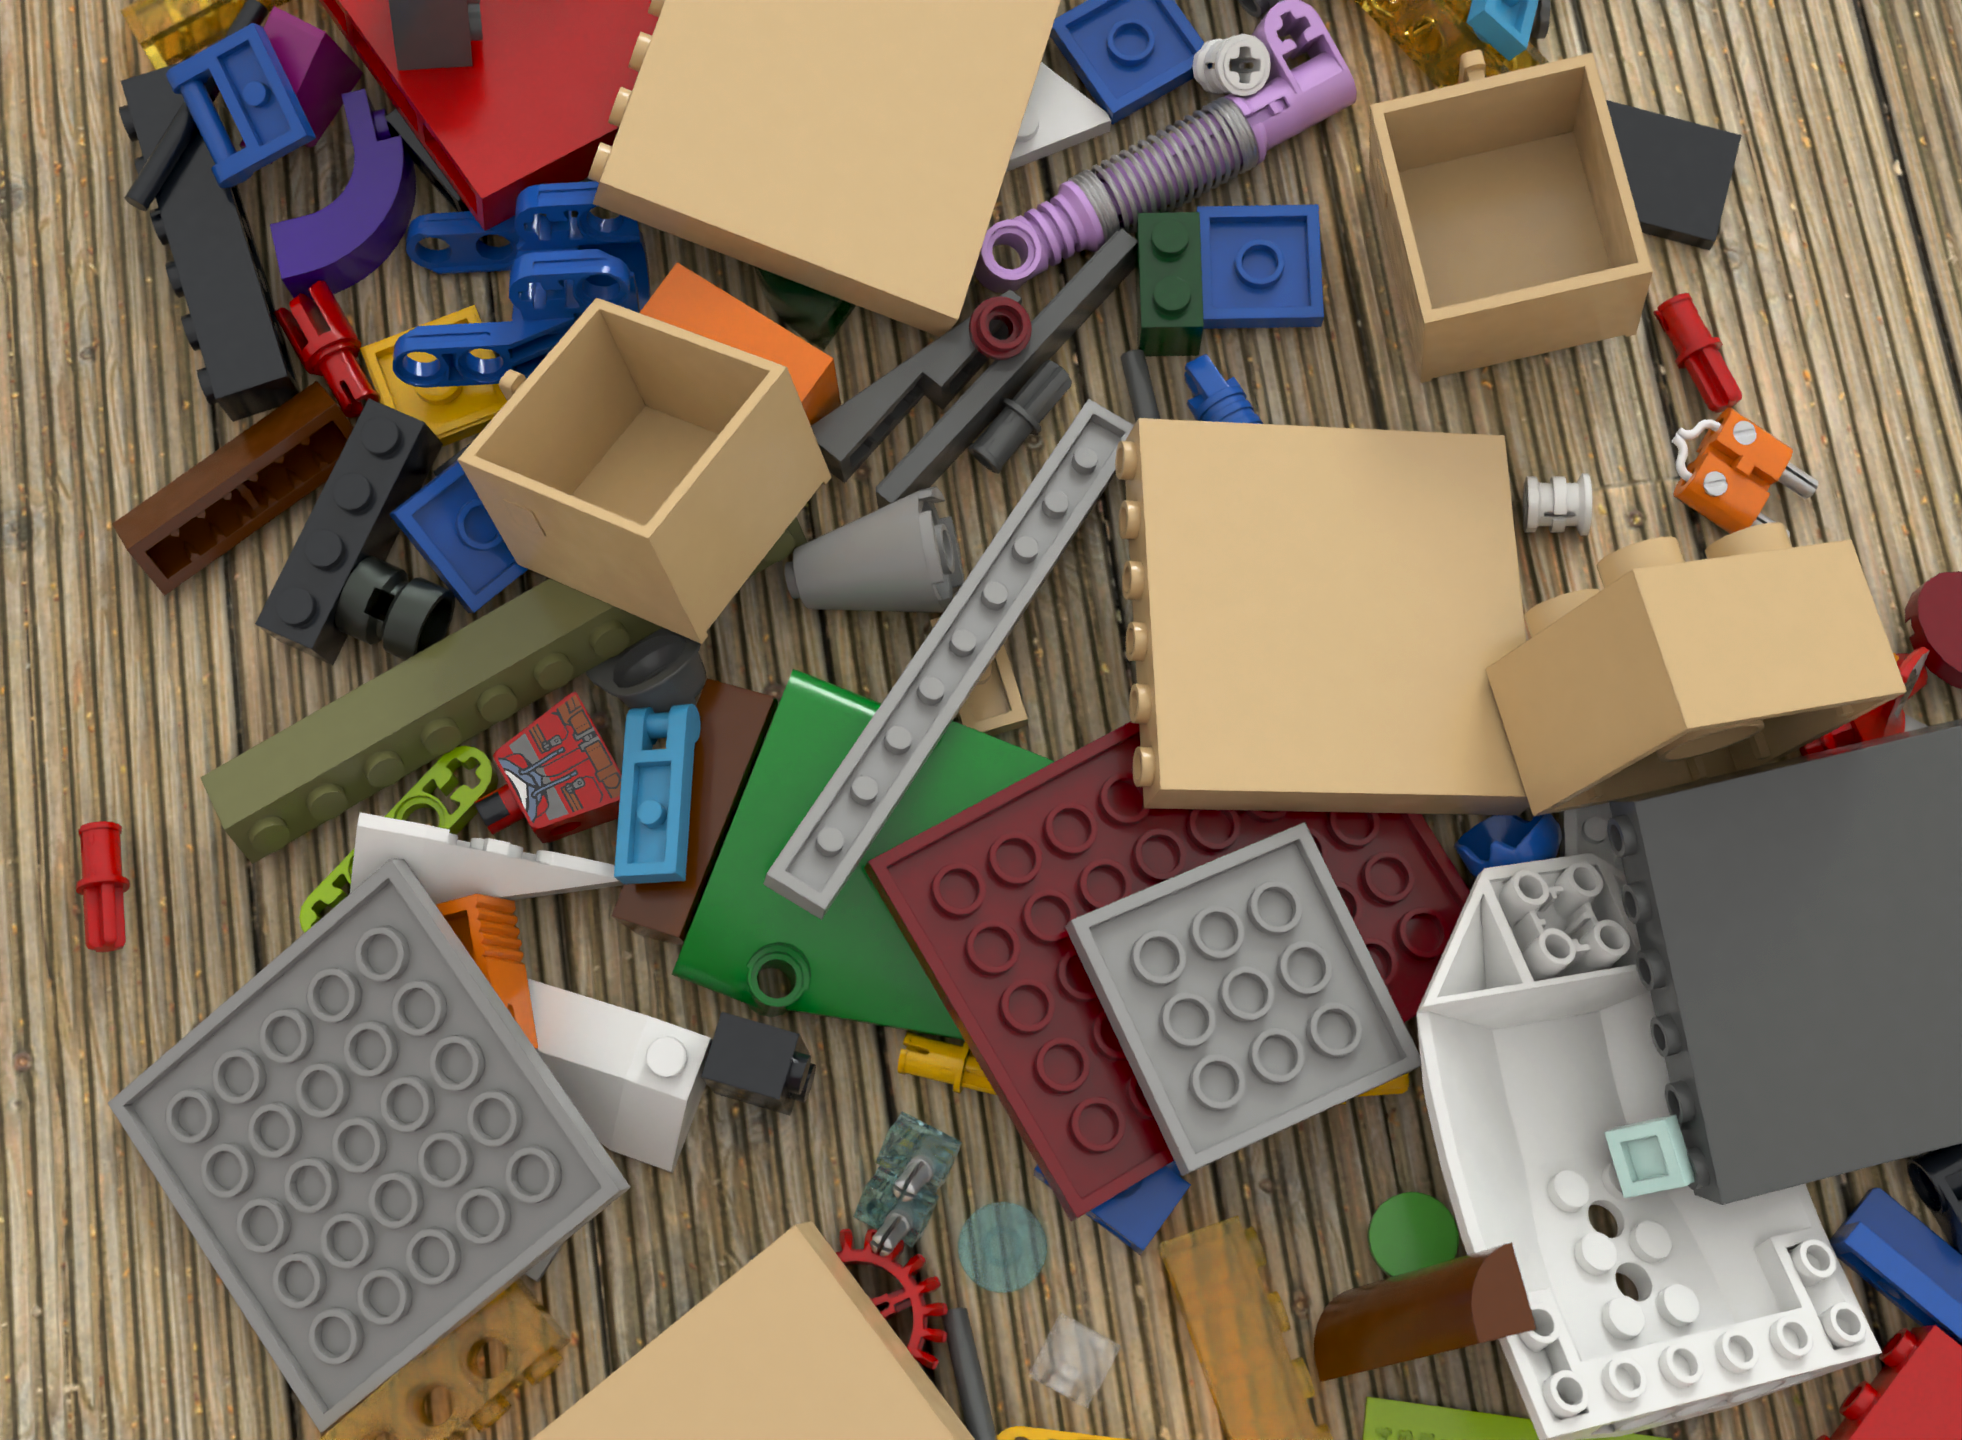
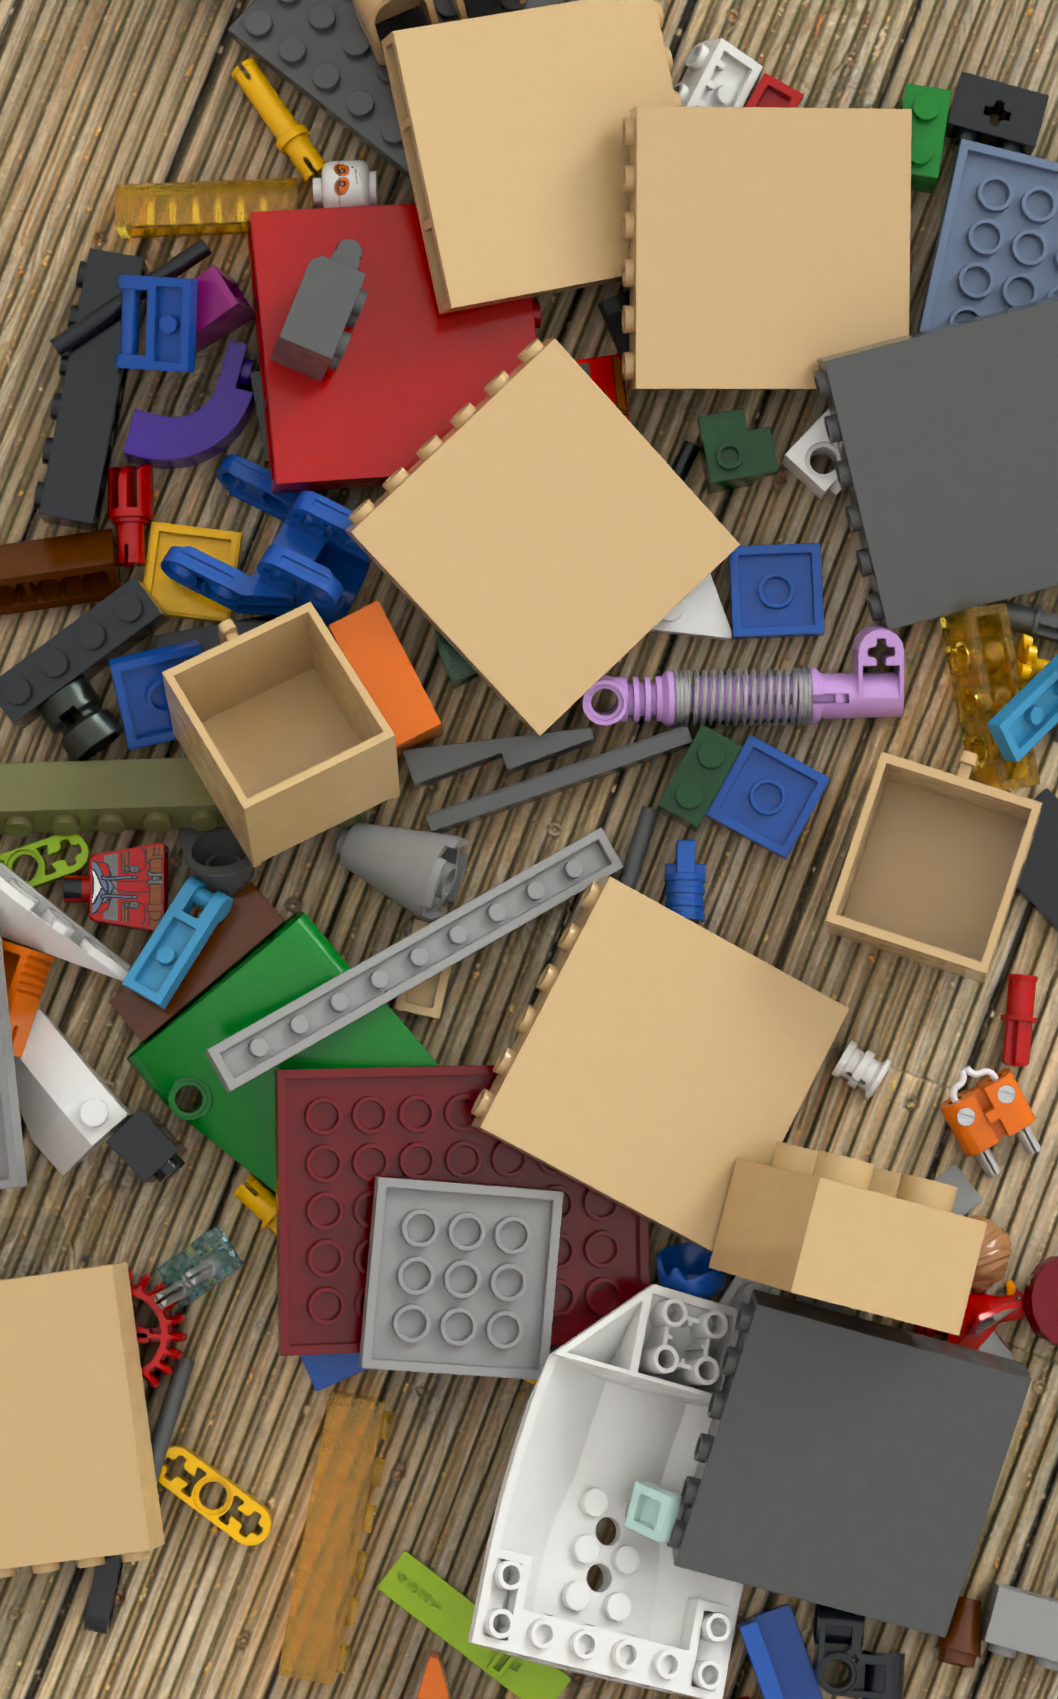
camera: 25 degrees right, 10 degrees up
(1002, 1247) = (237, 1336): clear light blue piece -> none
(1012, 315) = (575, 764): dark red plate -> none
(1021, 416) = (552, 812): dark grey axle -> none
(1074, 1360) = (240, 1430): clear brick -> none
(1238, 81) = (822, 648): white bush -> none
(1411, 1233) = (482, 1472): bright green piece -> none
(1423, 1313) = (450, 1527): reddish brown brick -> none

